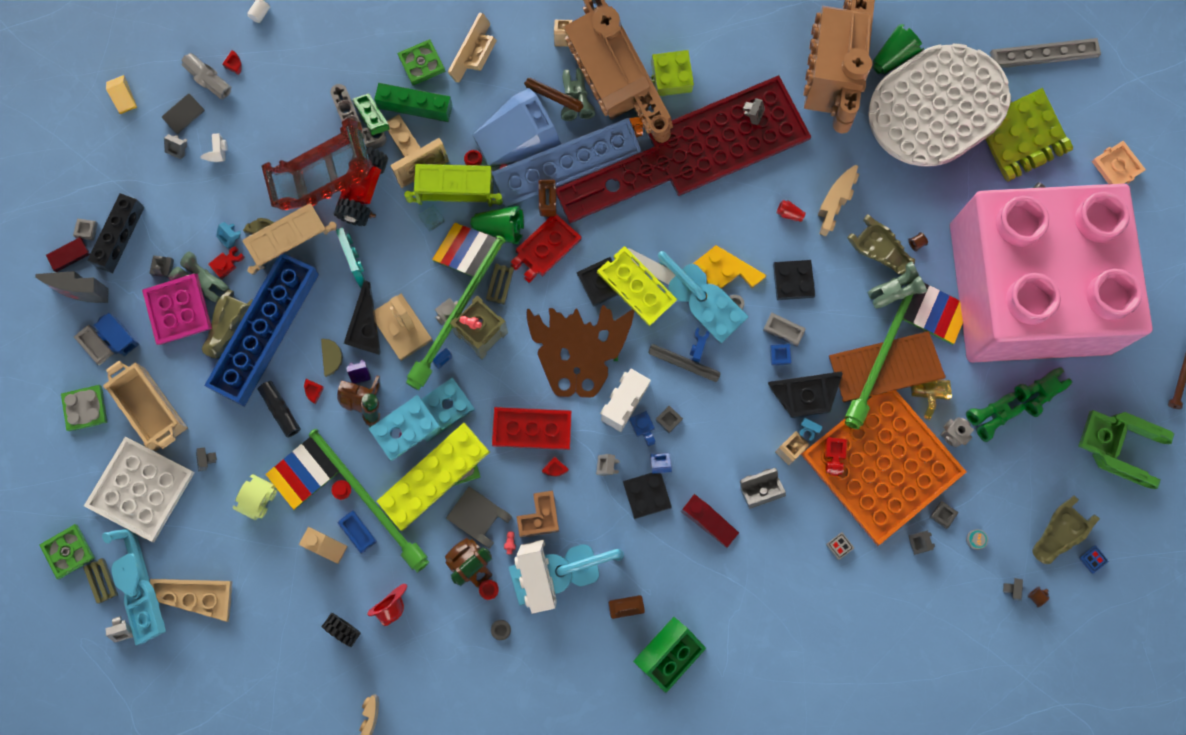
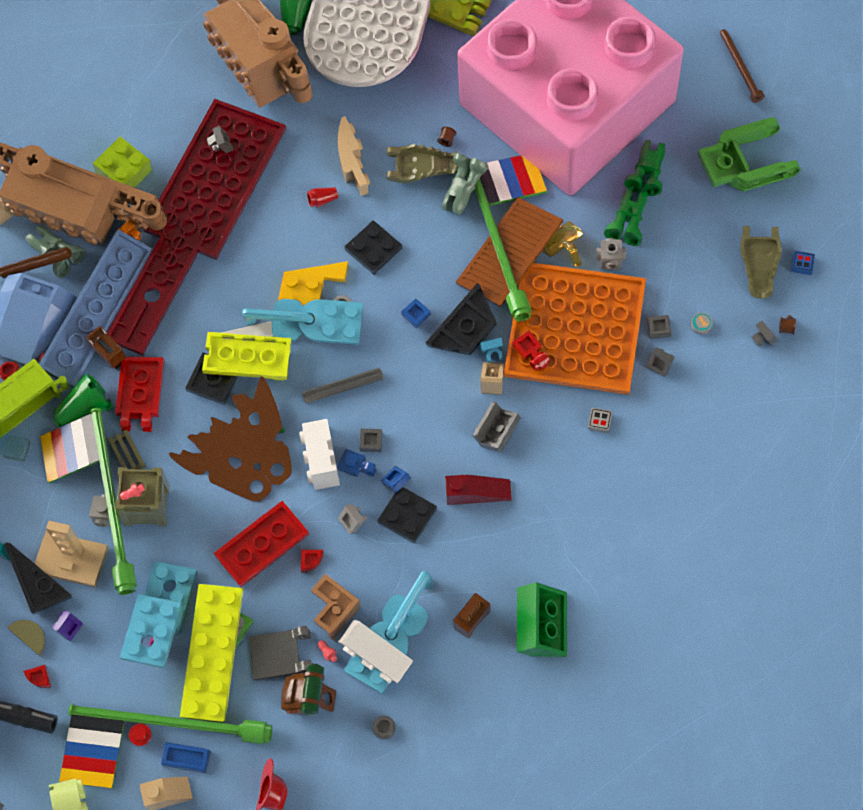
camera: 35 degrees left, 10 degrees down
(361, 399) = (91, 643): reddish brown piece -> none
(442, 358) = (131, 551): blue tile -> none
(488, 589) = (343, 703): red plate -> none
(696, 350) = (344, 365): blue plate -> none
(784, 329) = (401, 292): light grey tile -> none

